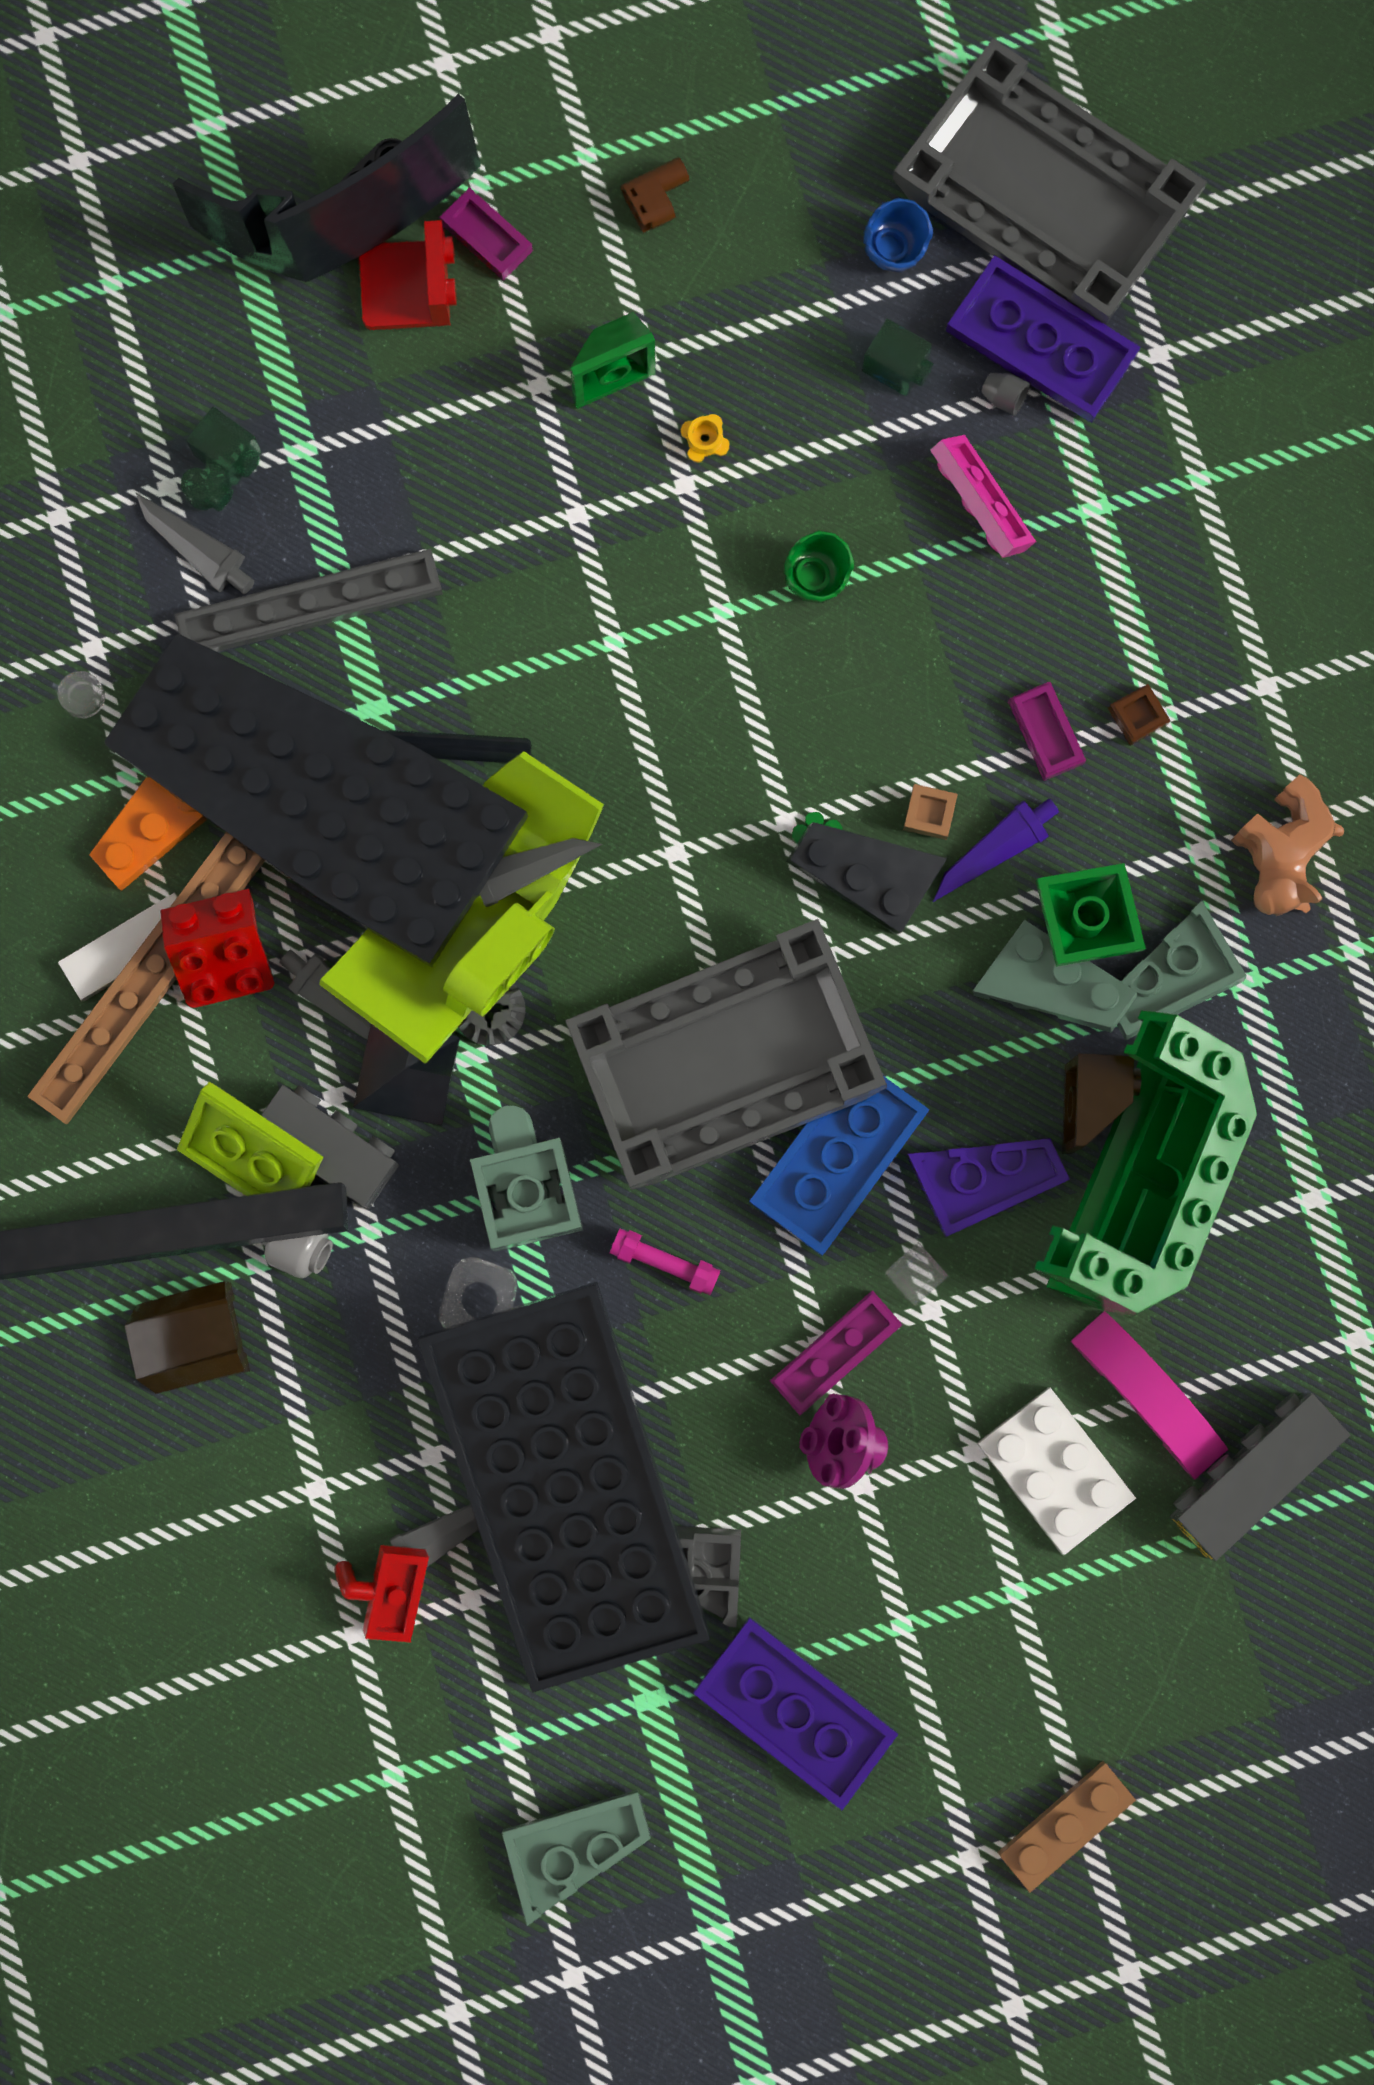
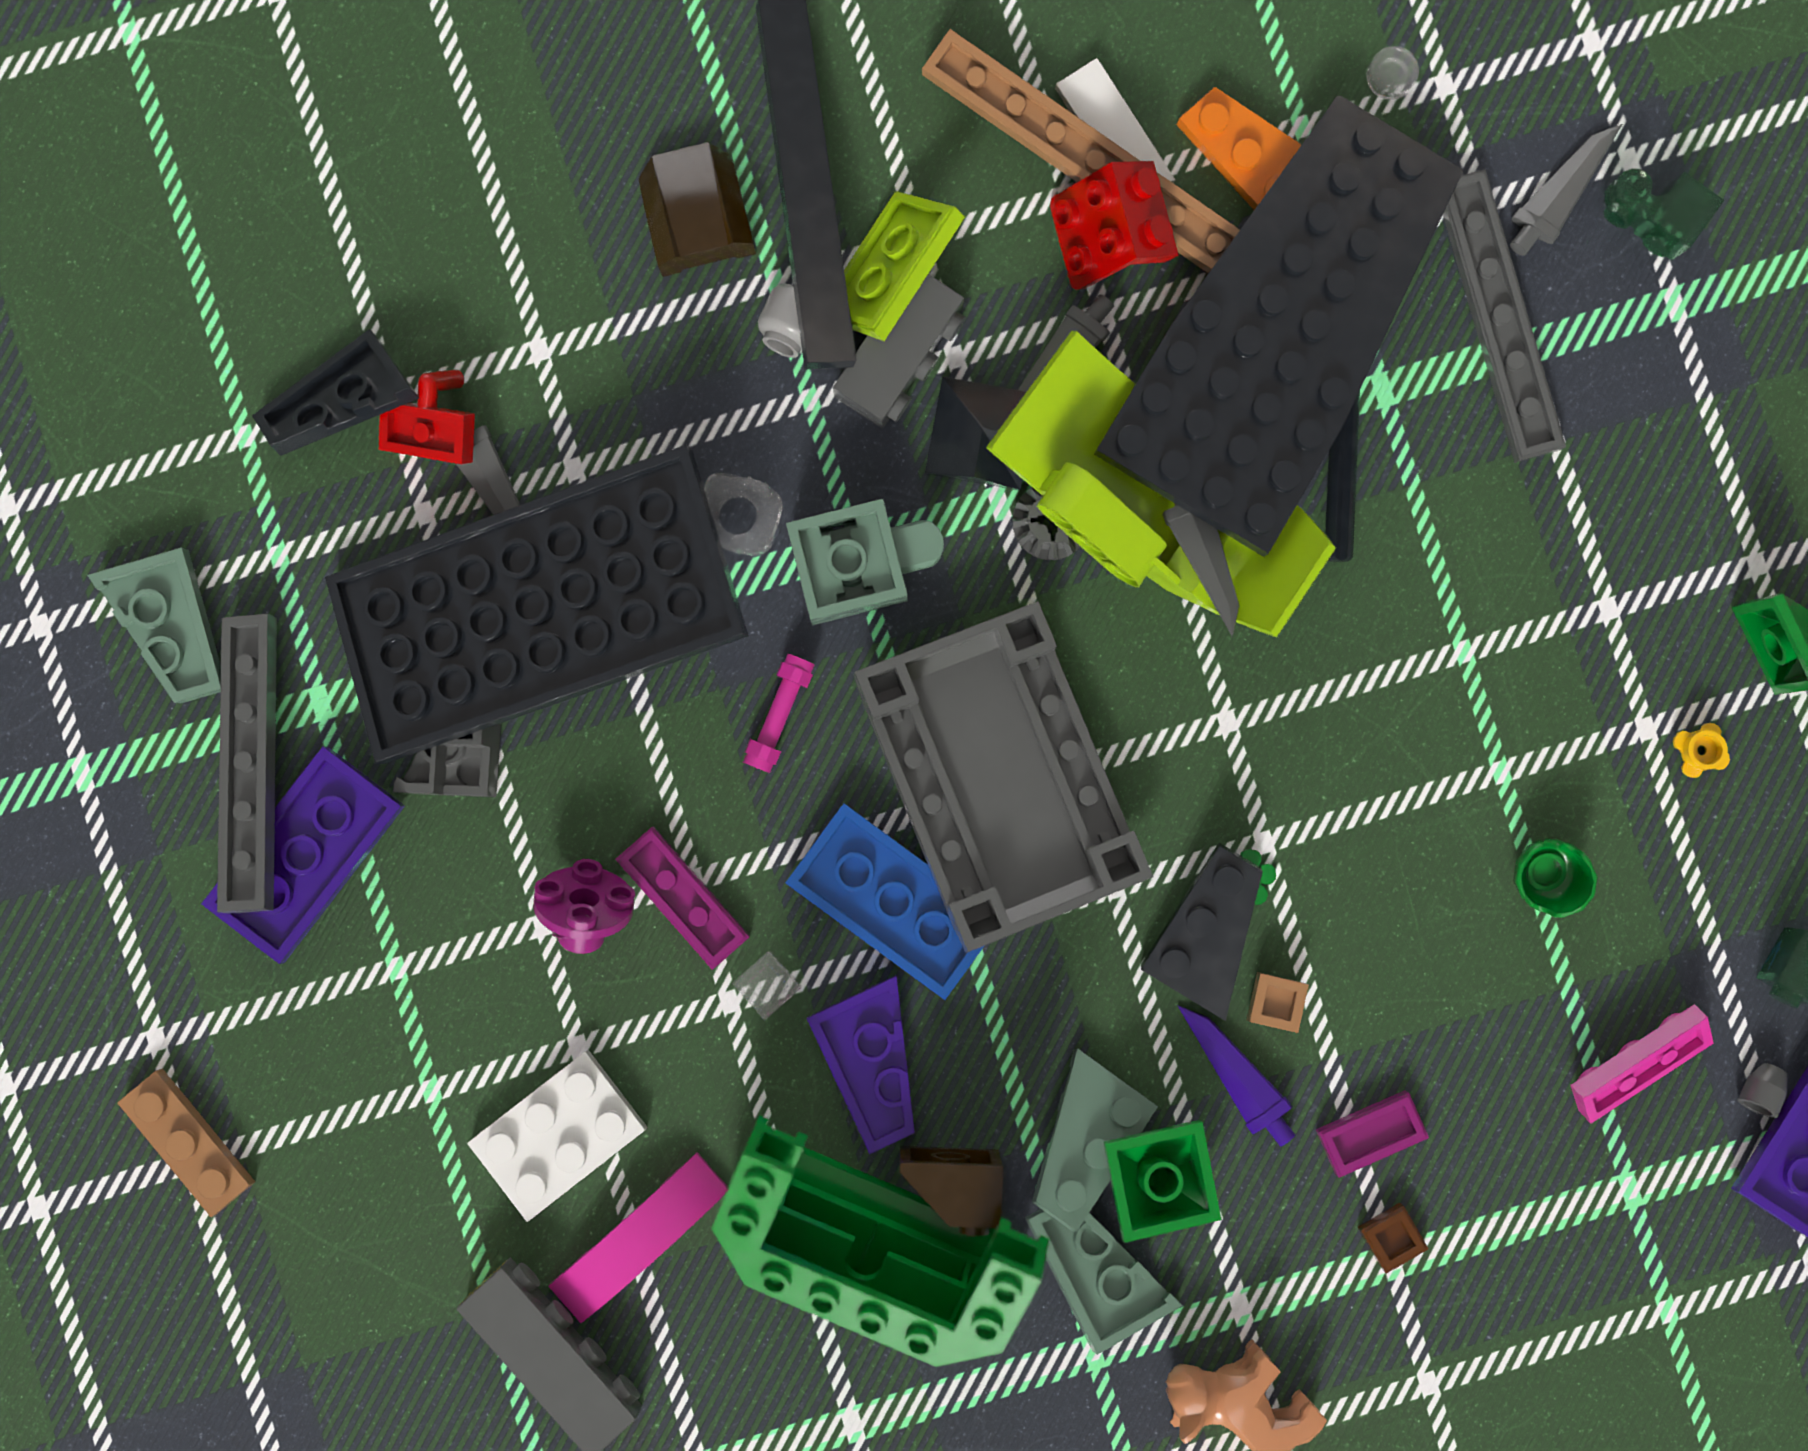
camera: 90 degrees right, 5 degrees up
(358, 1682) = (335, 396): none -> black wing
(709, 1764) = (247, 764): none -> dark grey plate

